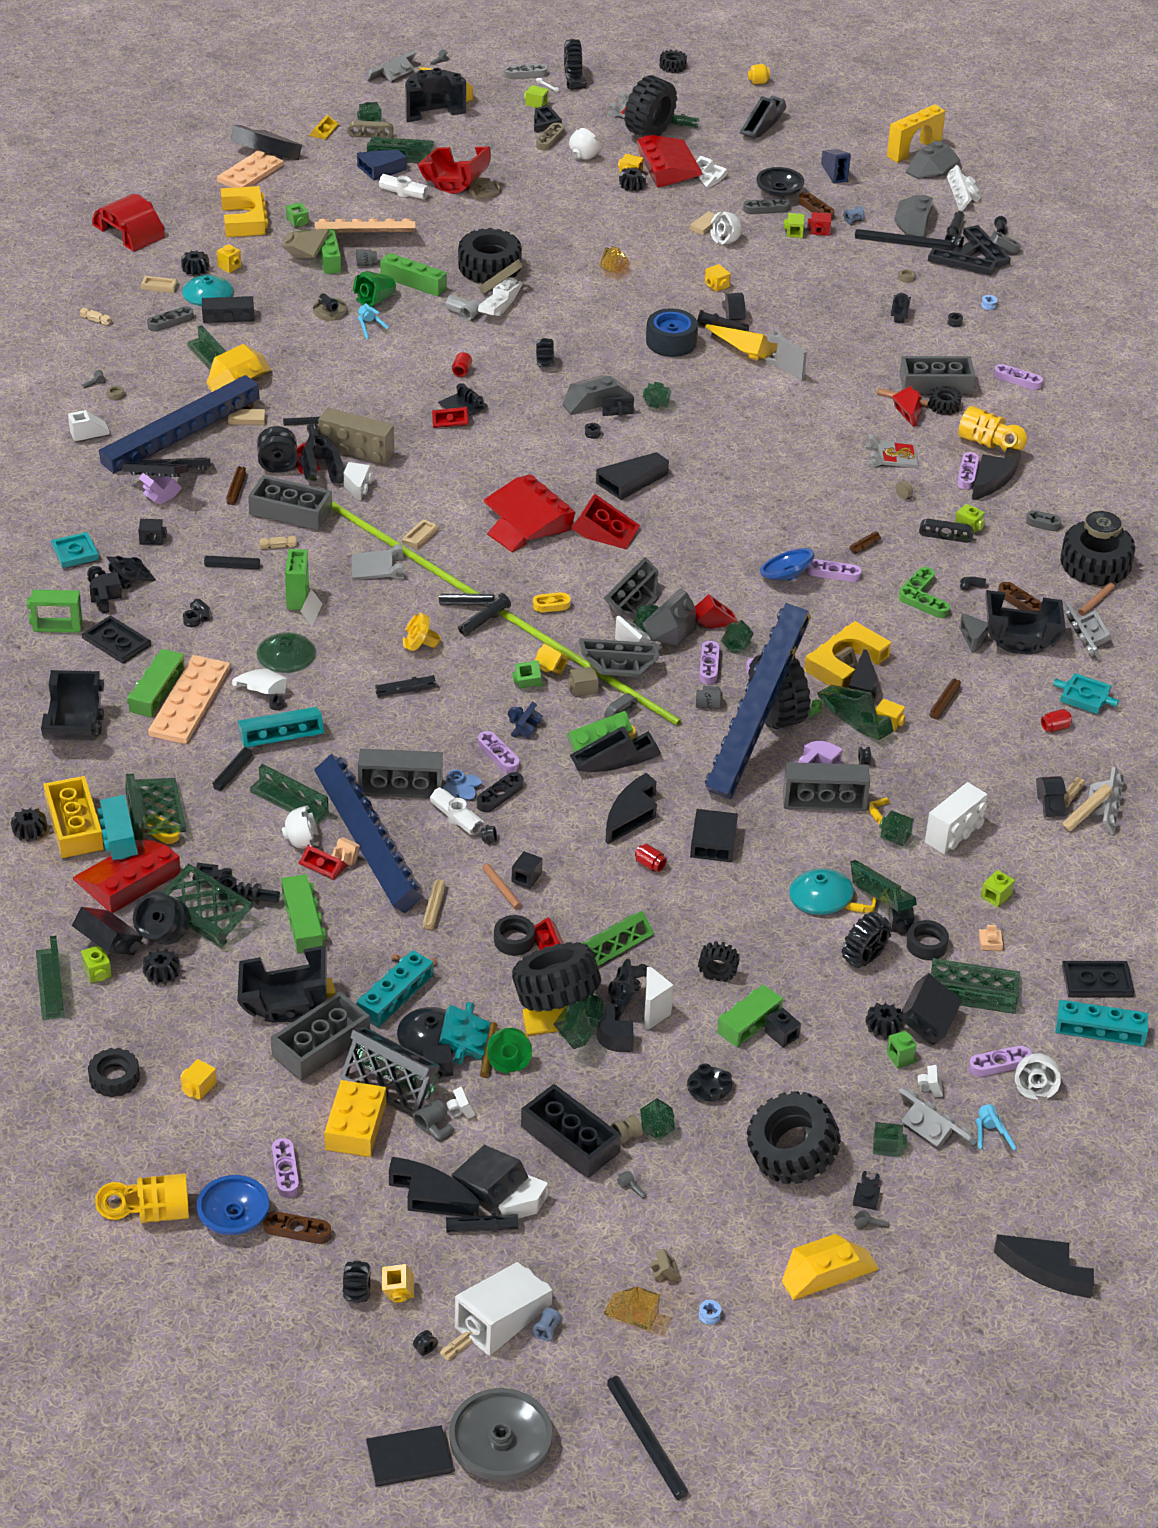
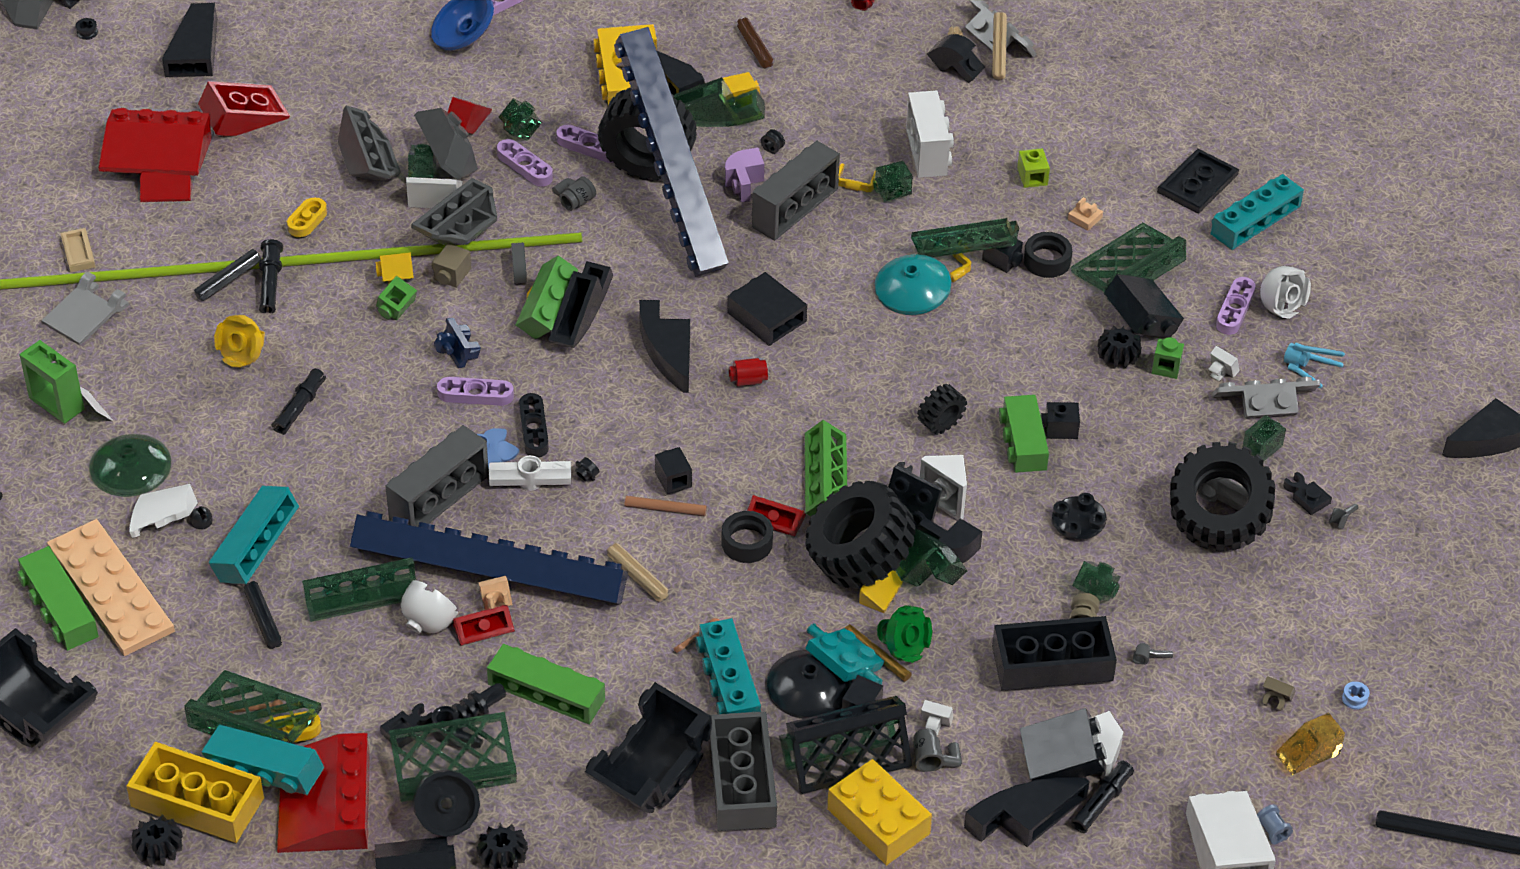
camera: 50 degrees left, 5 degrees up
(825, 1265) = (1369, 580): yellow wedge -> none
(866, 939) = (1019, 291): black gear -> none

